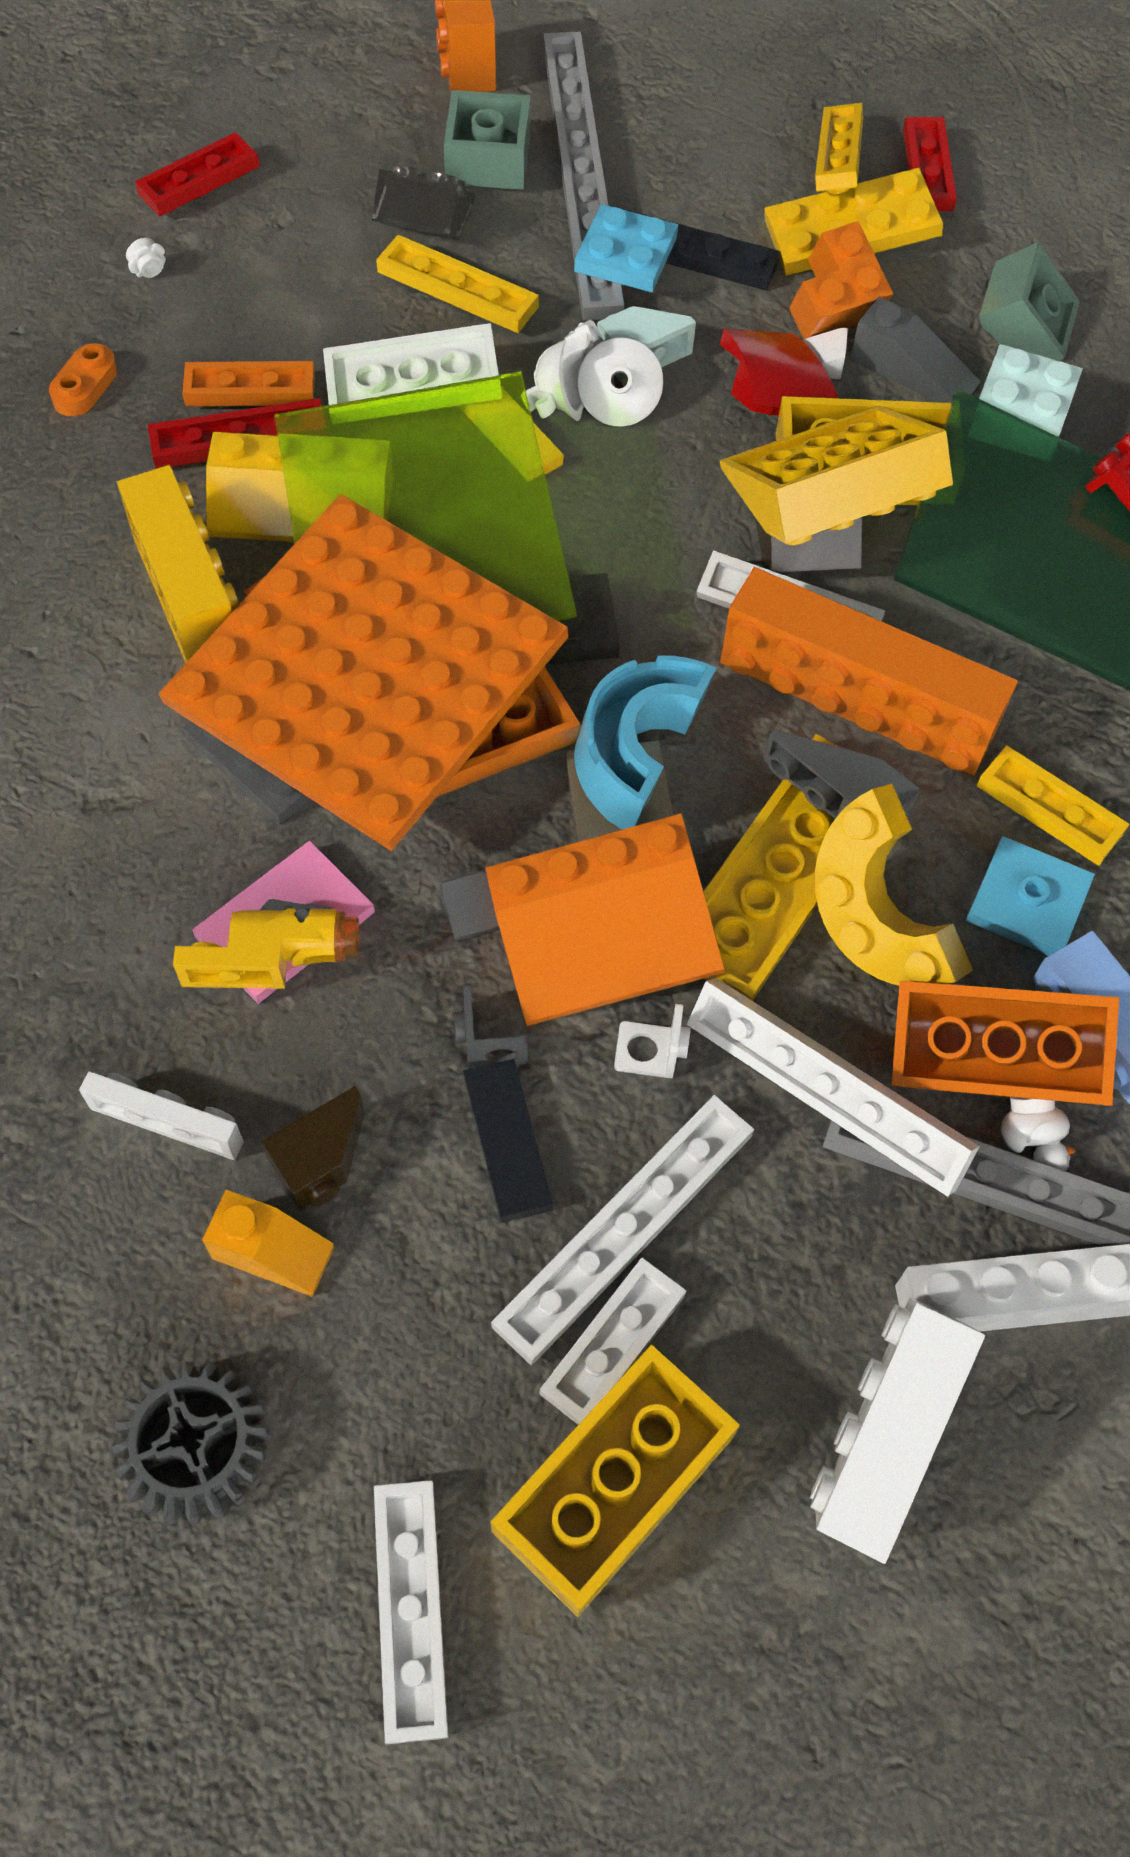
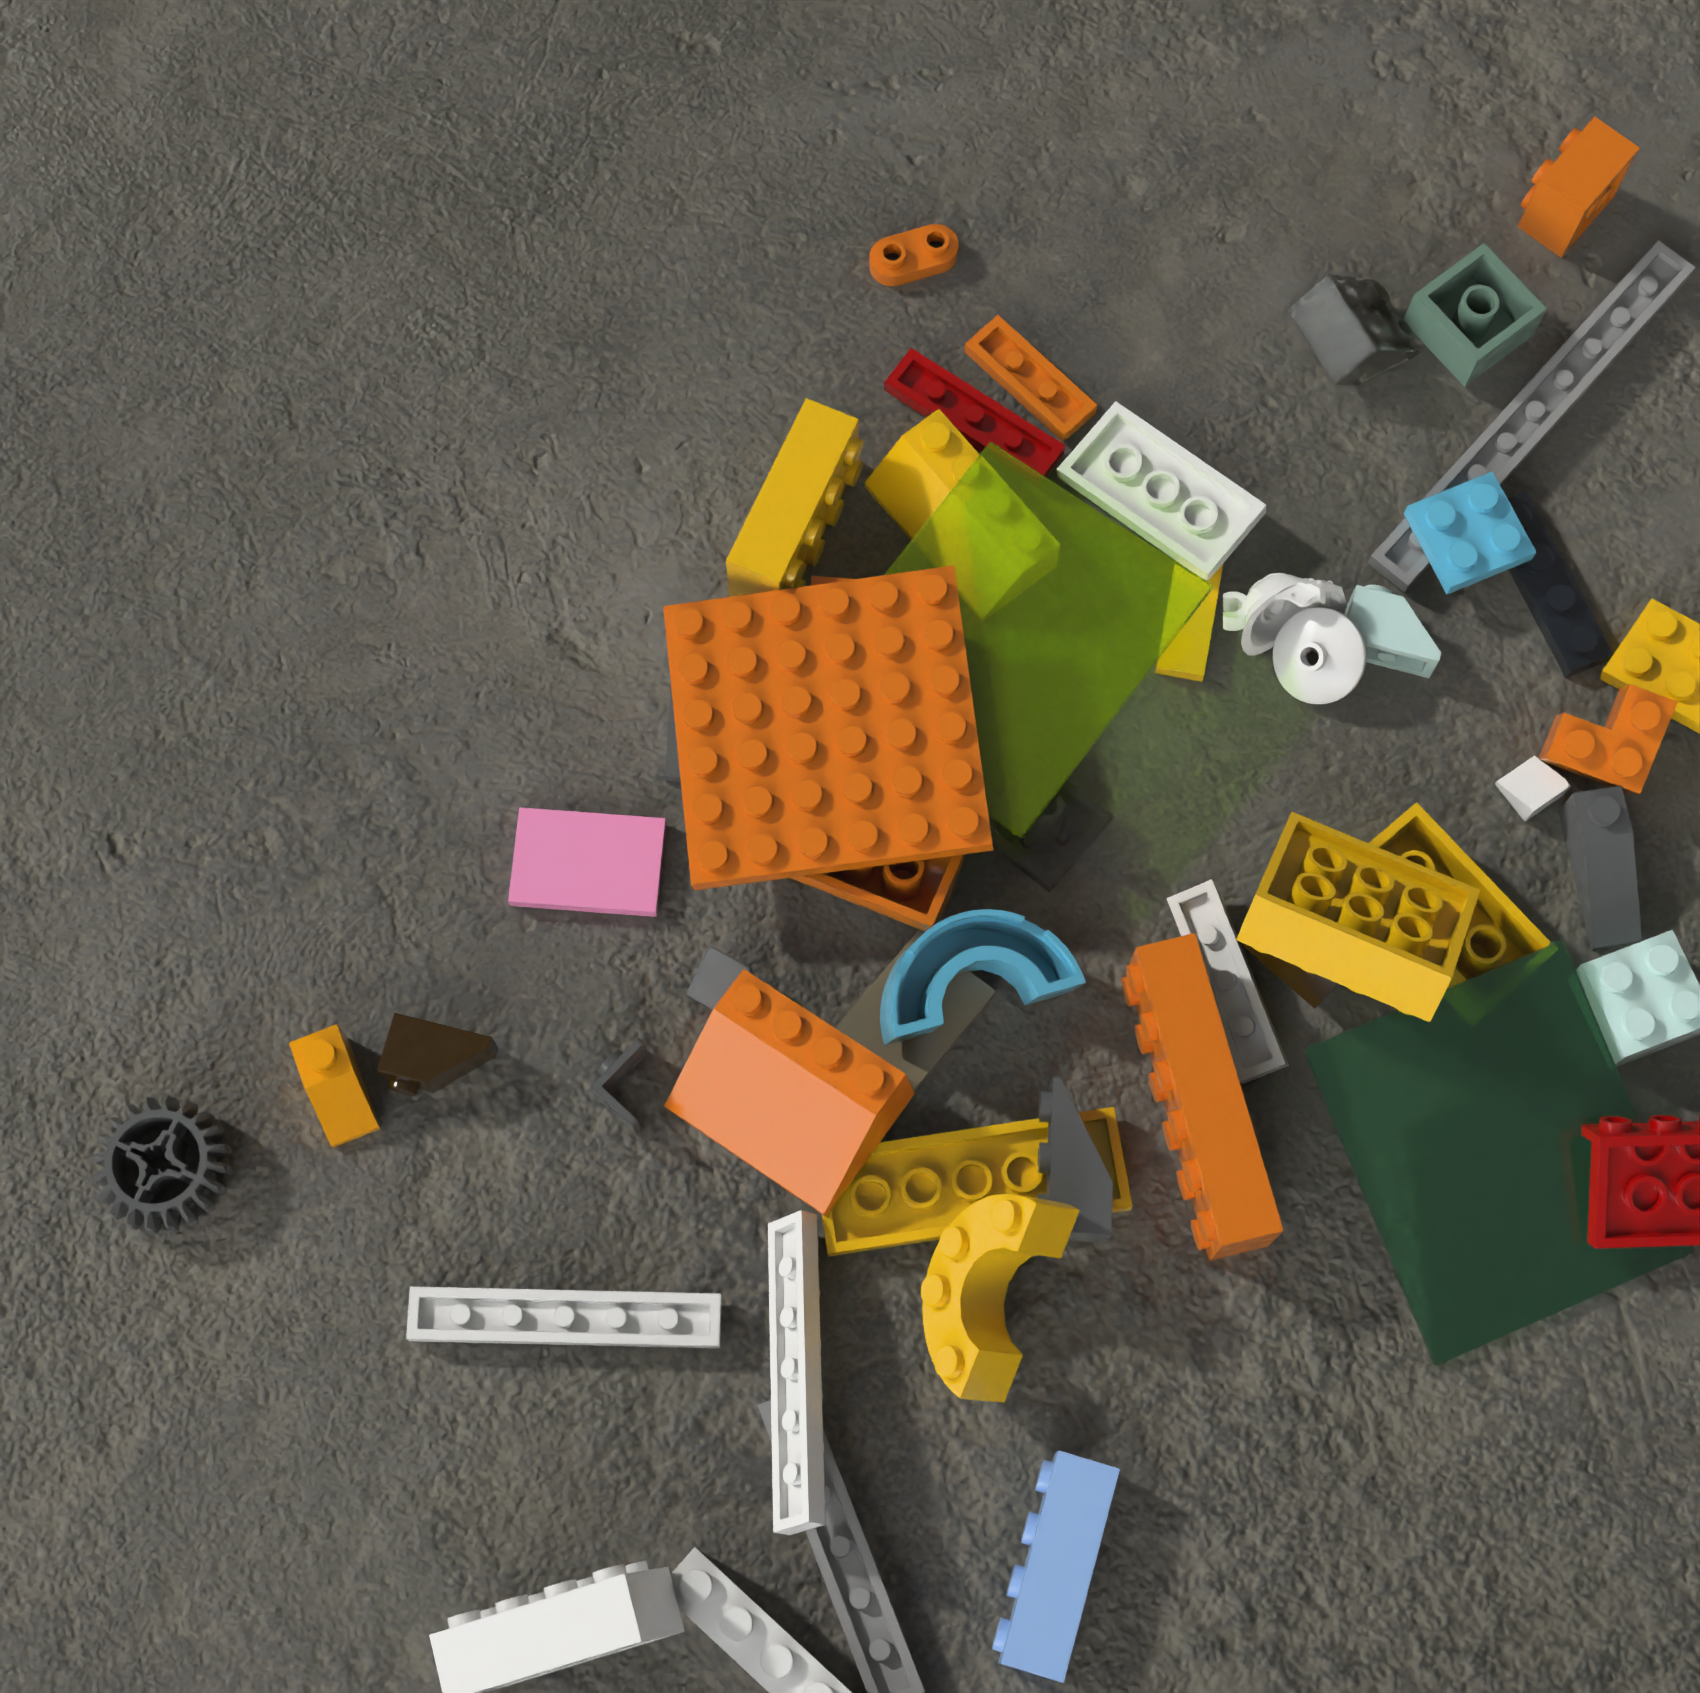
camera: 50 degrees right, 10 degrees up
(145, 258) = (1075, 180): white plate -> none
(162, 1113) = (365, 925): white plate -> none
(197, 174) = (1202, 129): red plate -> none
(264, 942) = (554, 872): yellow plate -> none
(410, 1613) = (175, 1408): white plate -> none
(458, 283) = (1298, 434): yellow plate -> none
(507, 1141) = (560, 1175): black tile -> none
(613, 1341) = (471, 1383): white plate -> none
(613, 1479) = (367, 1467): yellow brick -> none
(670, 1042) = (736, 1230): white bracket -> none
(773, 368) = (1463, 771): red slope -> none
(1006, 1042) = (945, 1481): orange brick -> none
(1030, 897) = (1126, 1395): medium azure plate -> none
(1040, 1125) = (914, 1556): white animal -> none
(1052, 805) = (1229, 1347): yellow plate -> none

